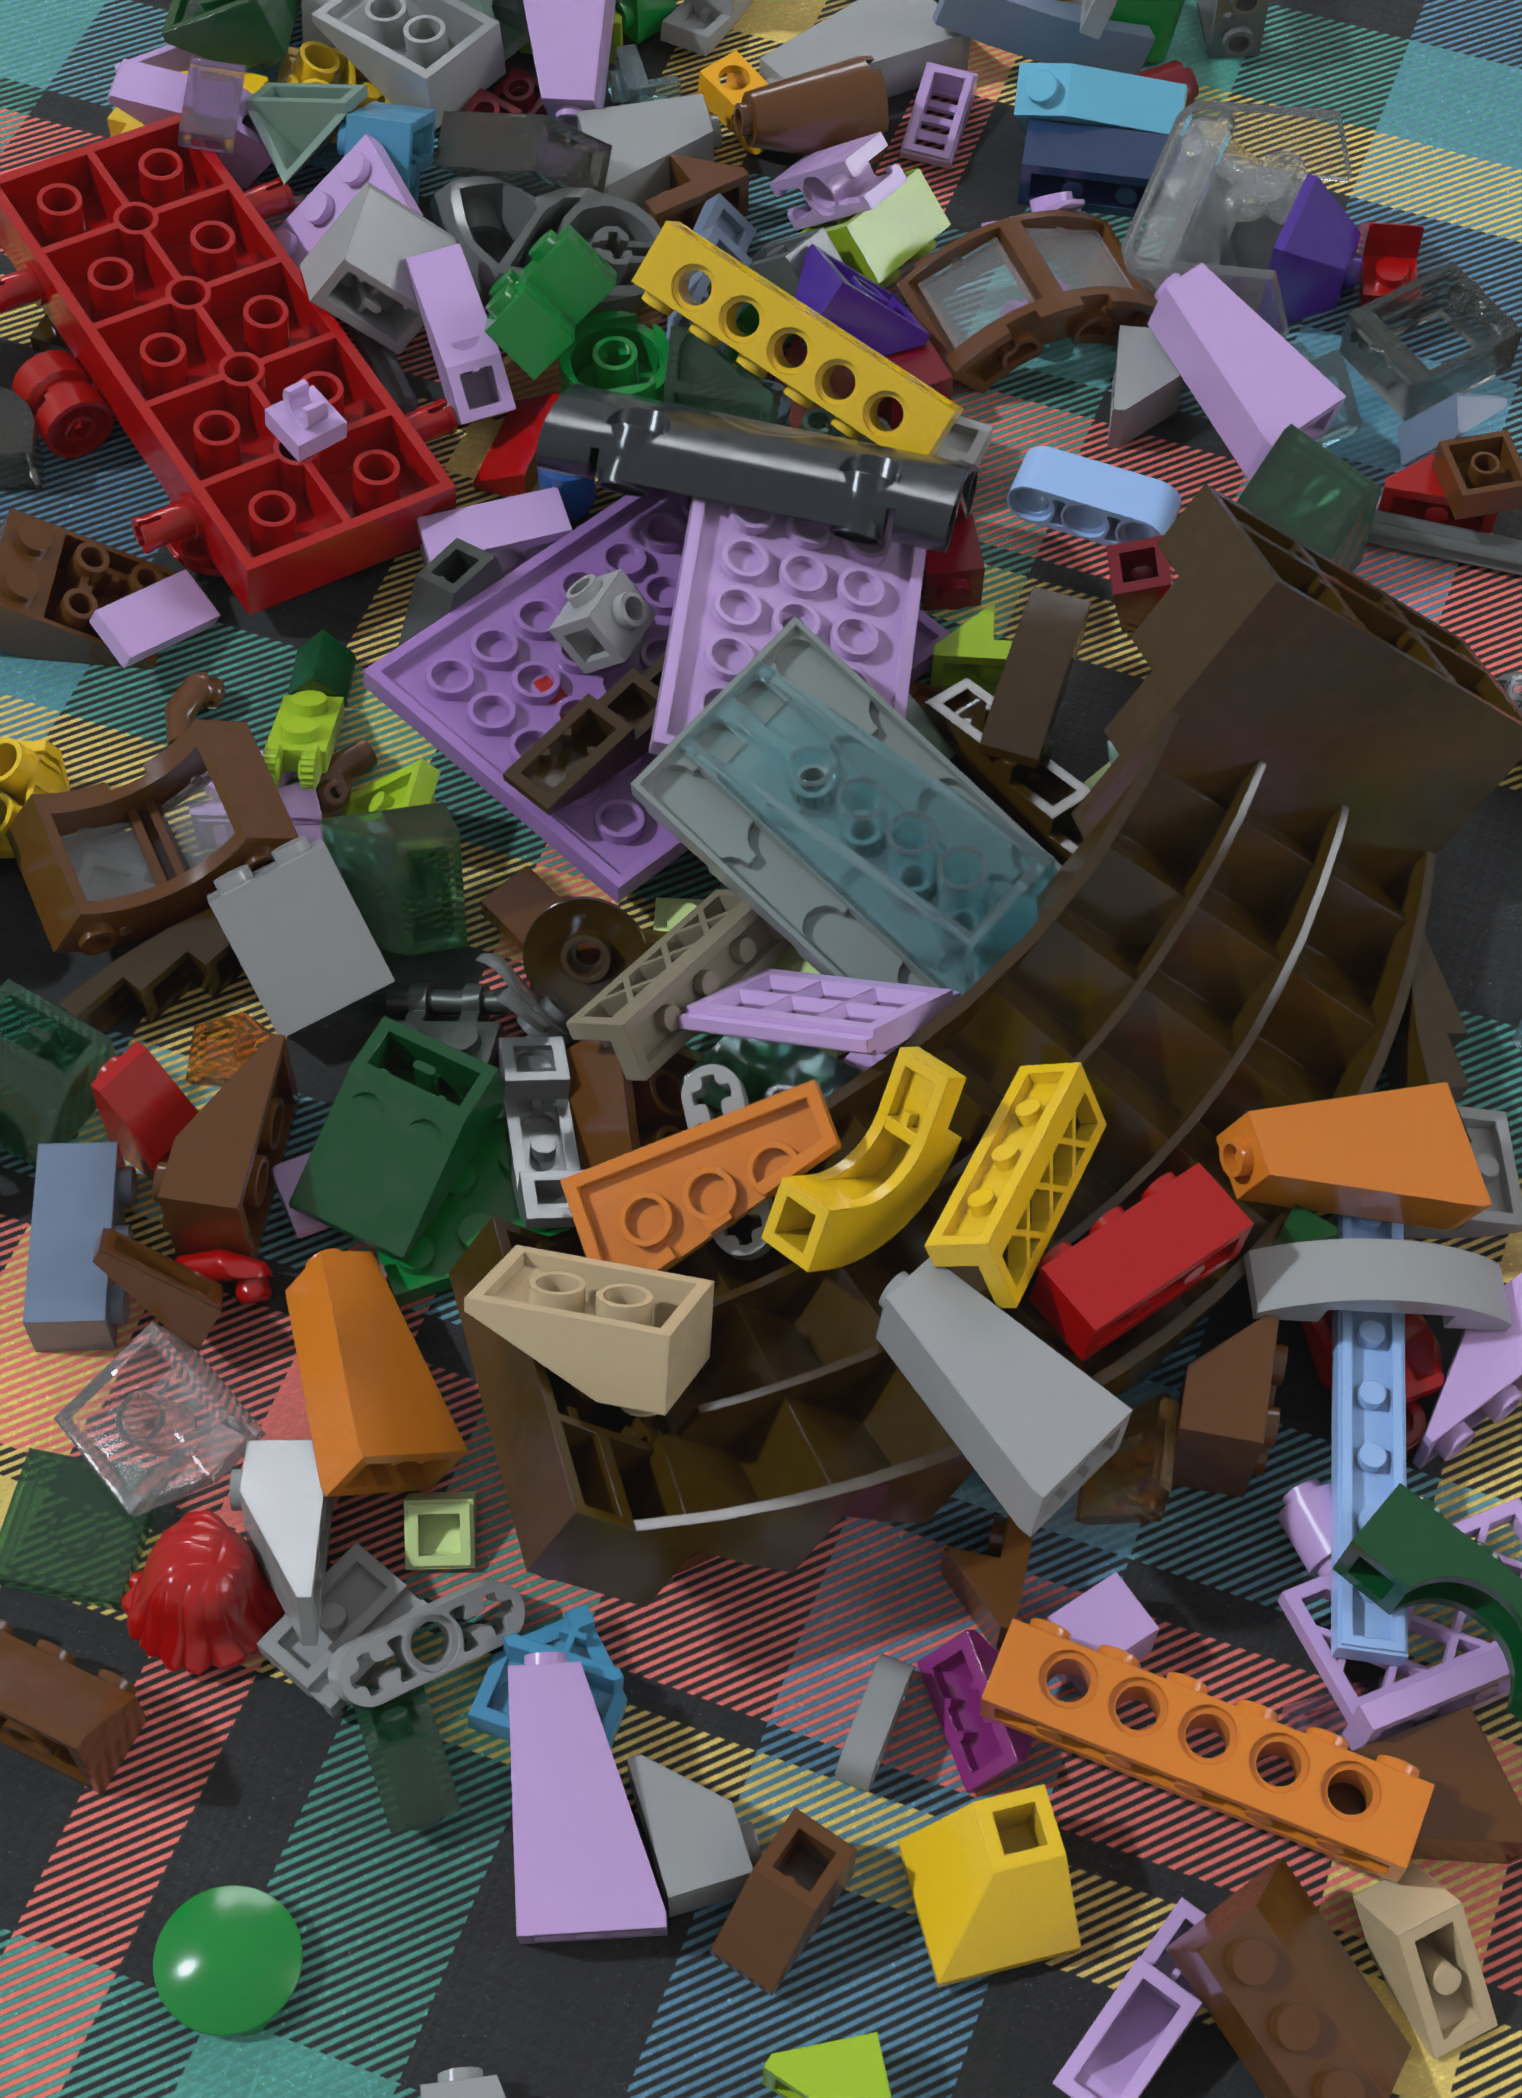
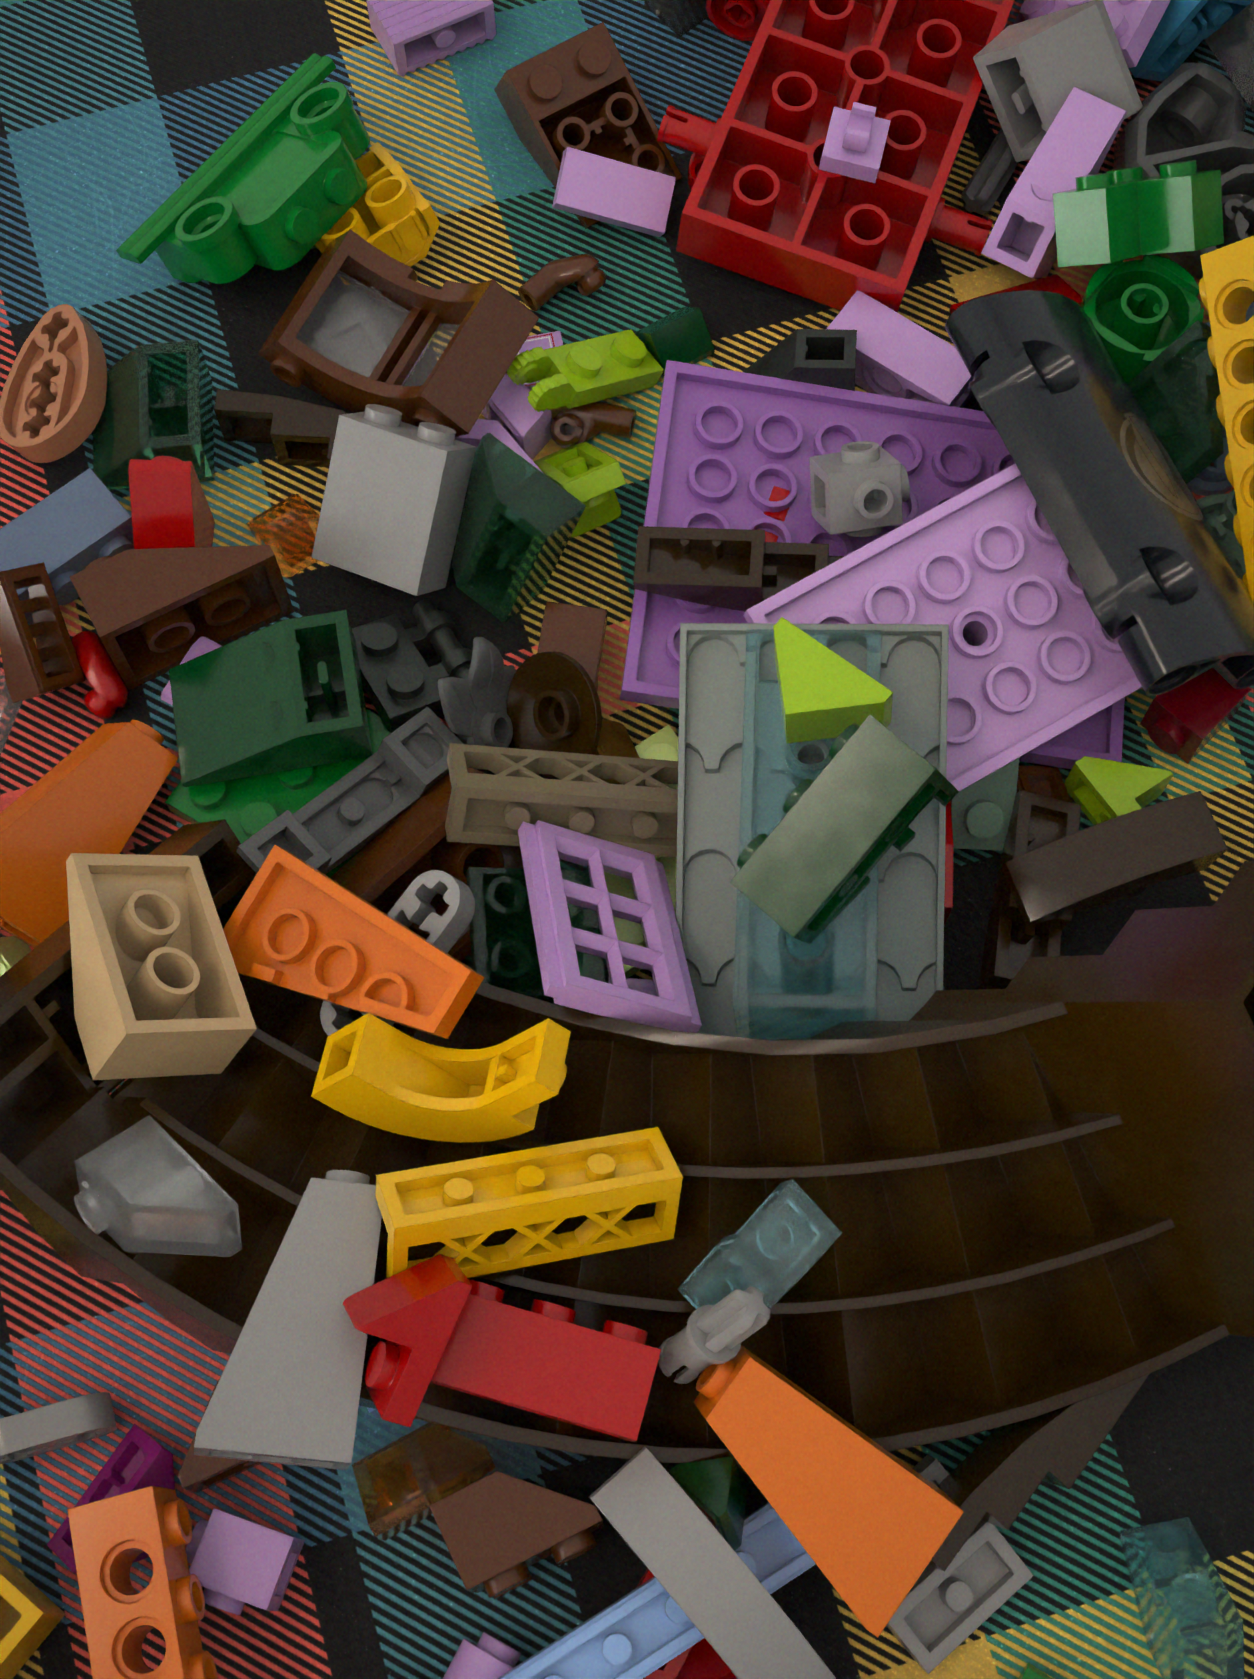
camera: 55 degrees right, 10 degrees up
(780, 718) = (821, 689): none -> lime slope
(805, 1426) = (155, 1196): none -> clear slope
(911, 770) = (839, 829): none -> dark green wedge
(1064, 1287) = (416, 1318): none -> red slope
(1180, 1069) = (766, 1252): none -> clear light blue slope
(1212, 1122) = (713, 1334): none -> light grey axle

